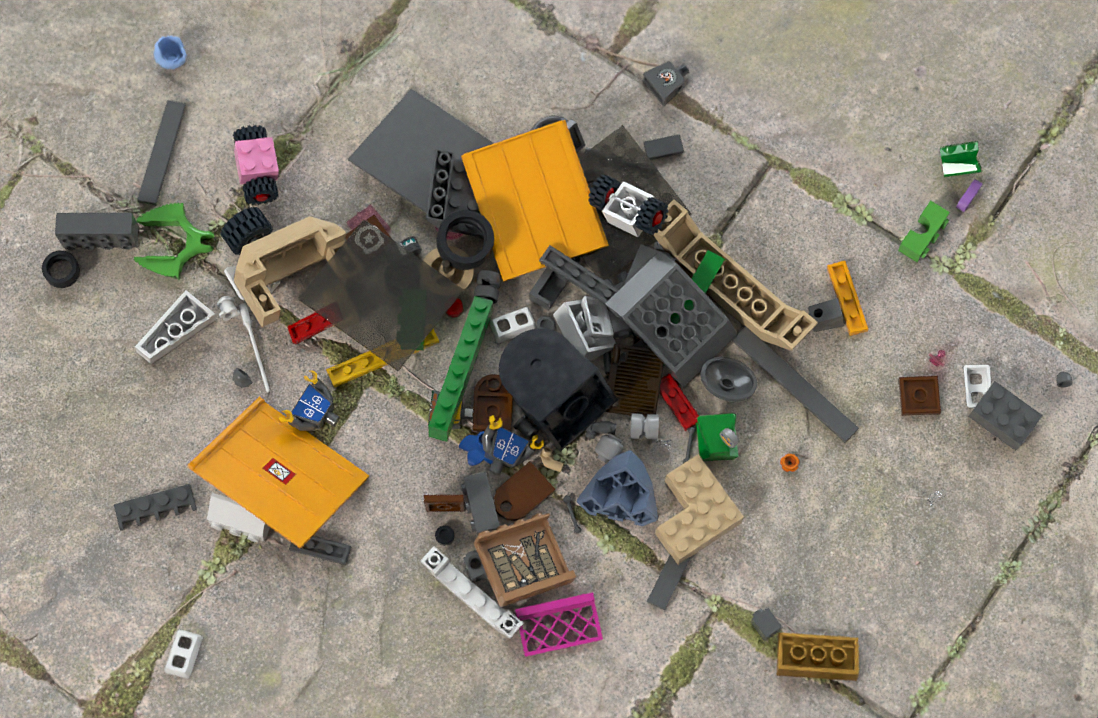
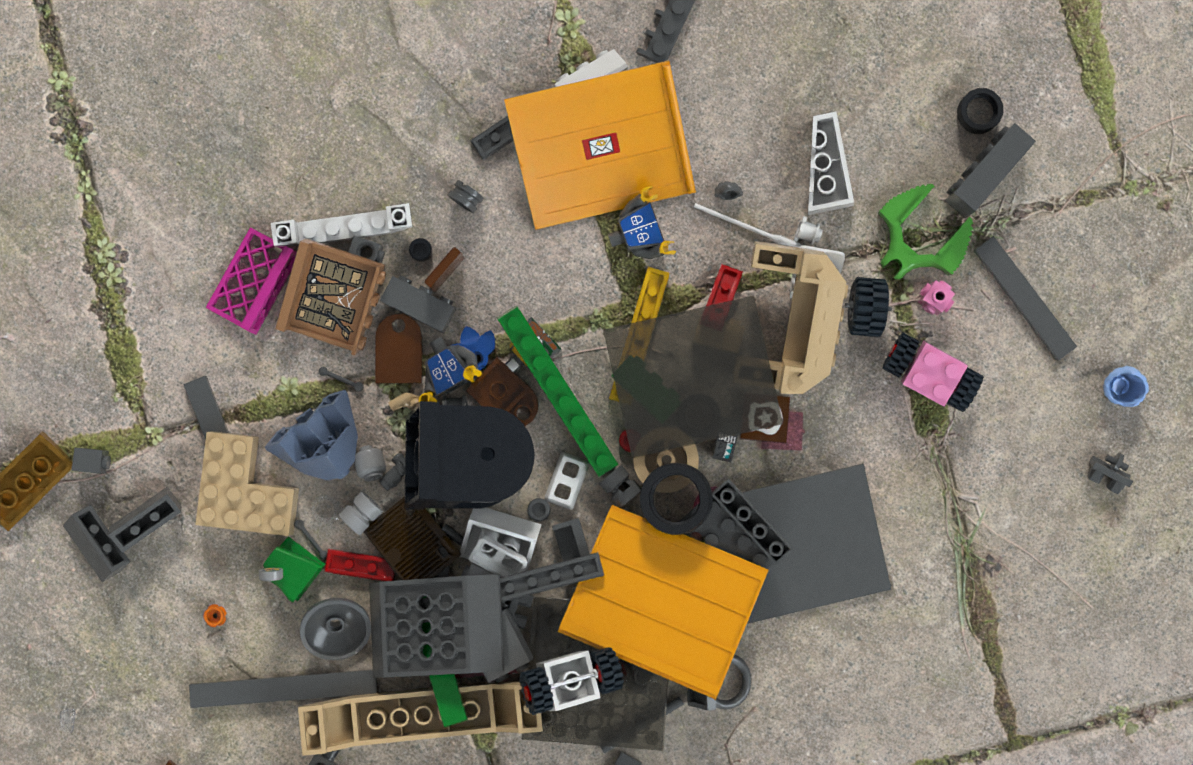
camera: 130 degrees right, 15 degrees up
(205, 200) = (929, 301): none -> bright pink brick
(227, 24) = (1119, 478): none -> dark grey hips
(385, 532) = (465, 196): none -> dark grey wheel
(770, 554) = (144, 519): none -> dark grey brick
(813, 571) = (94, 543): none -> dark grey brick

